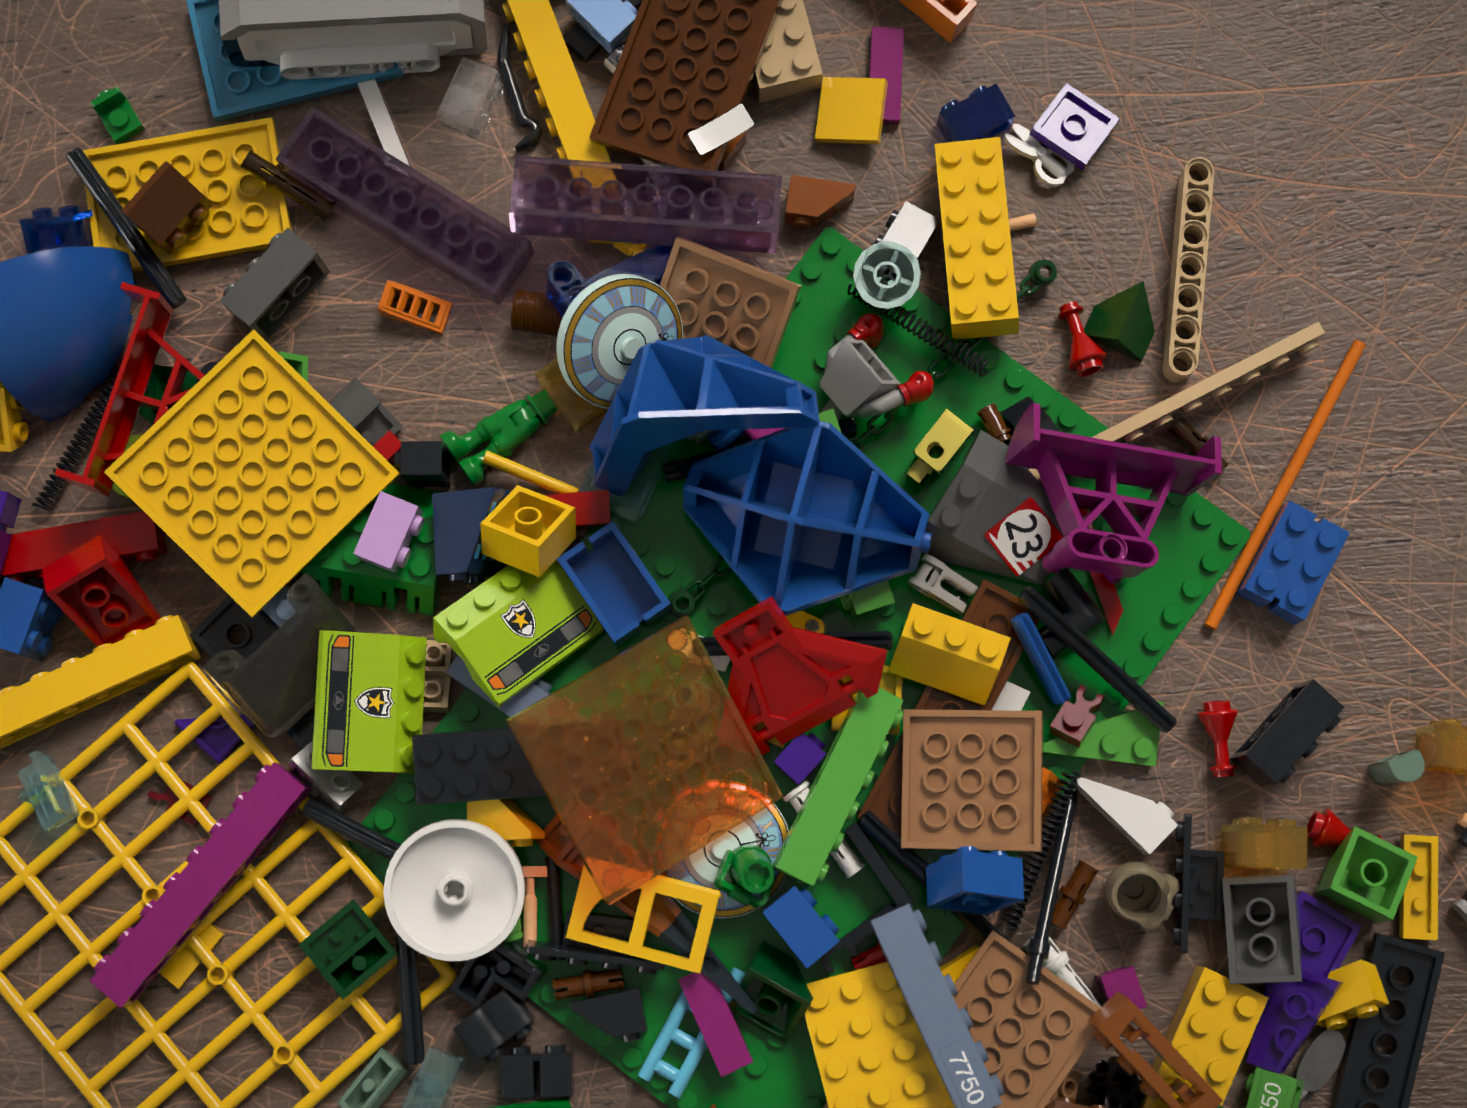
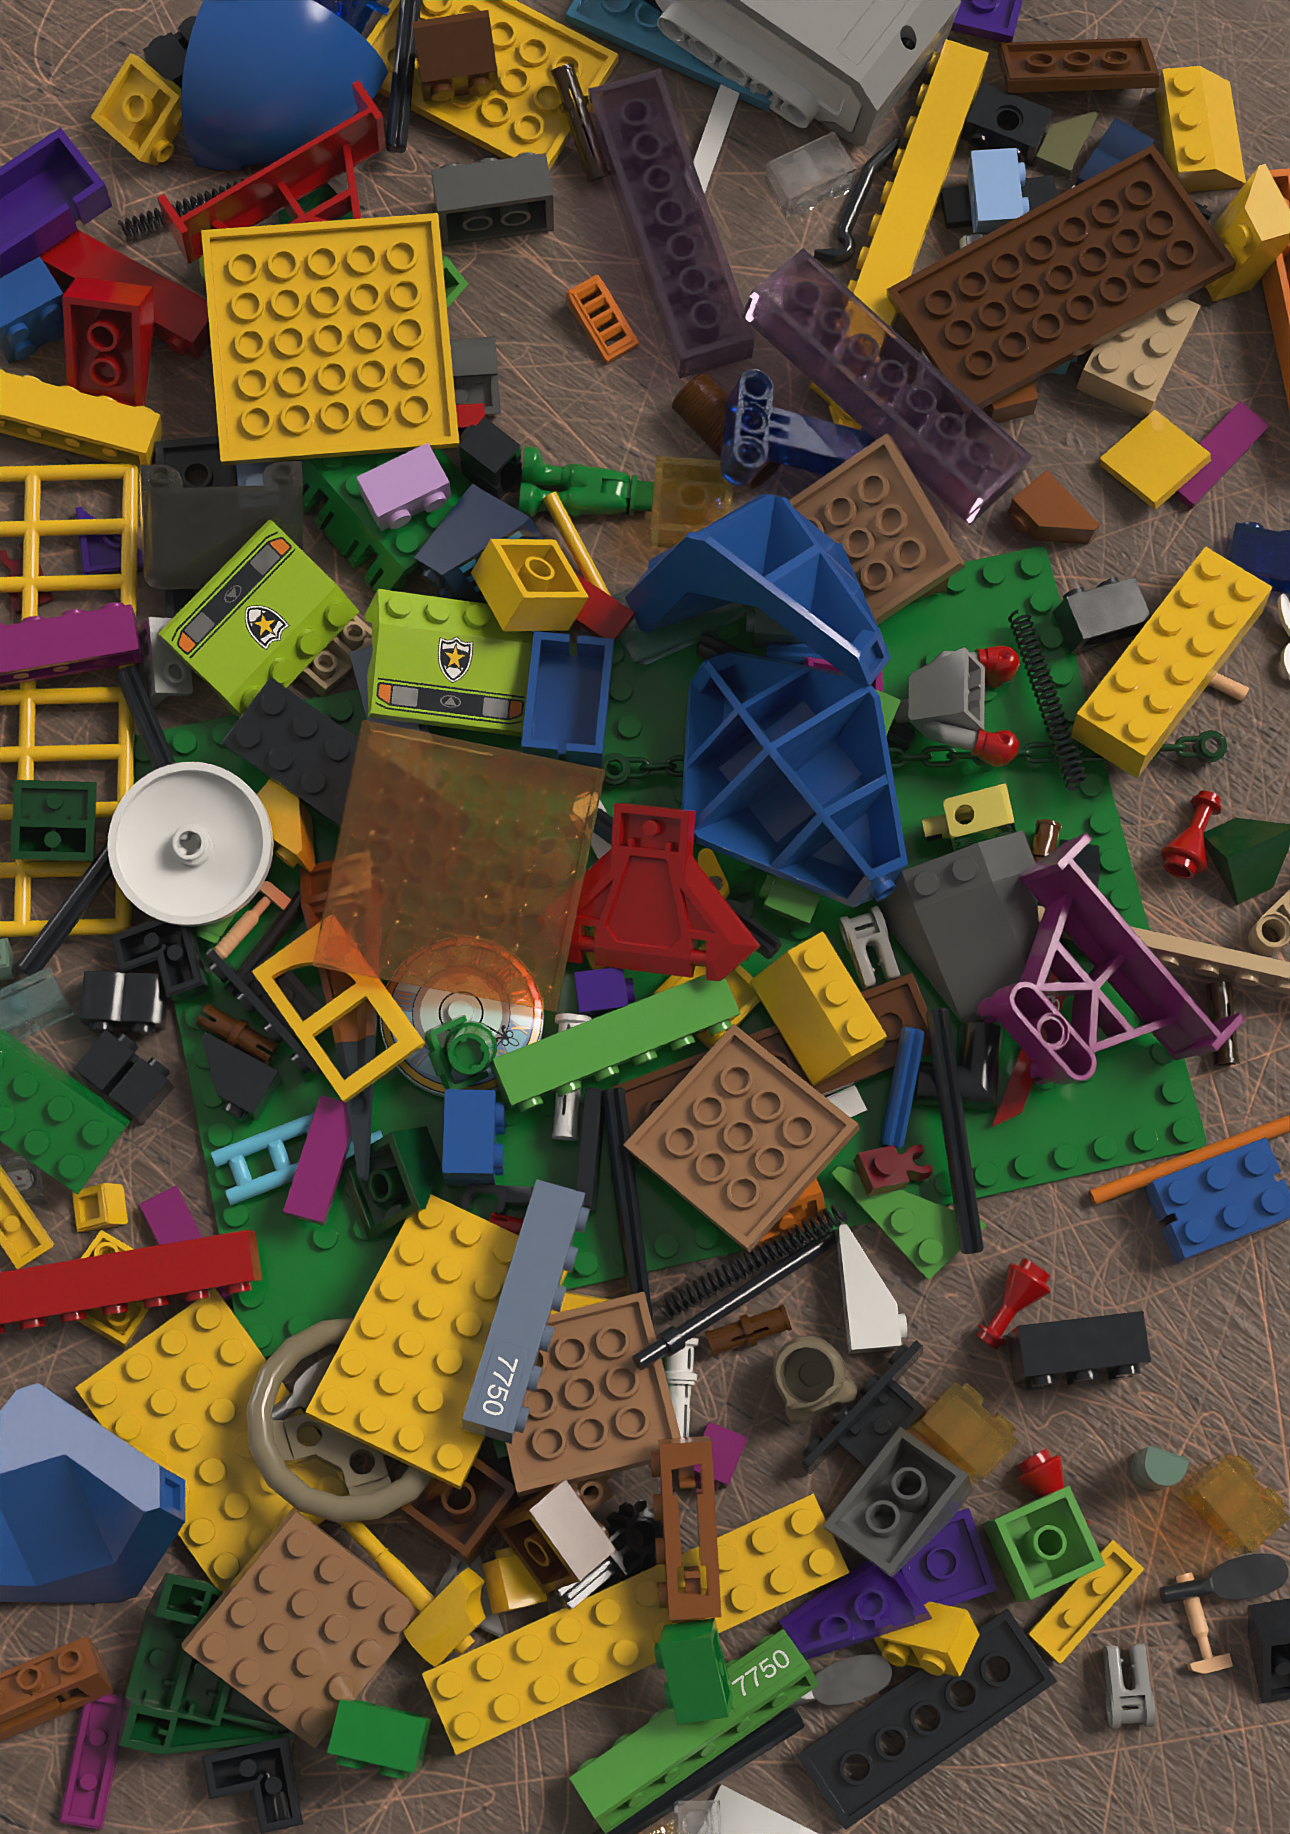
camera: 35 degrees right, 5 degrees down
(608, 328) = (750, 455): dish -> none
(721, 129) = (1013, 374): white sticker -> none
(871, 280) = (1042, 612): light aqua cylinder -> none
(975, 881) = (663, 1229): blue brick -> none
(1023, 536) = (980, 959): sticker -> none

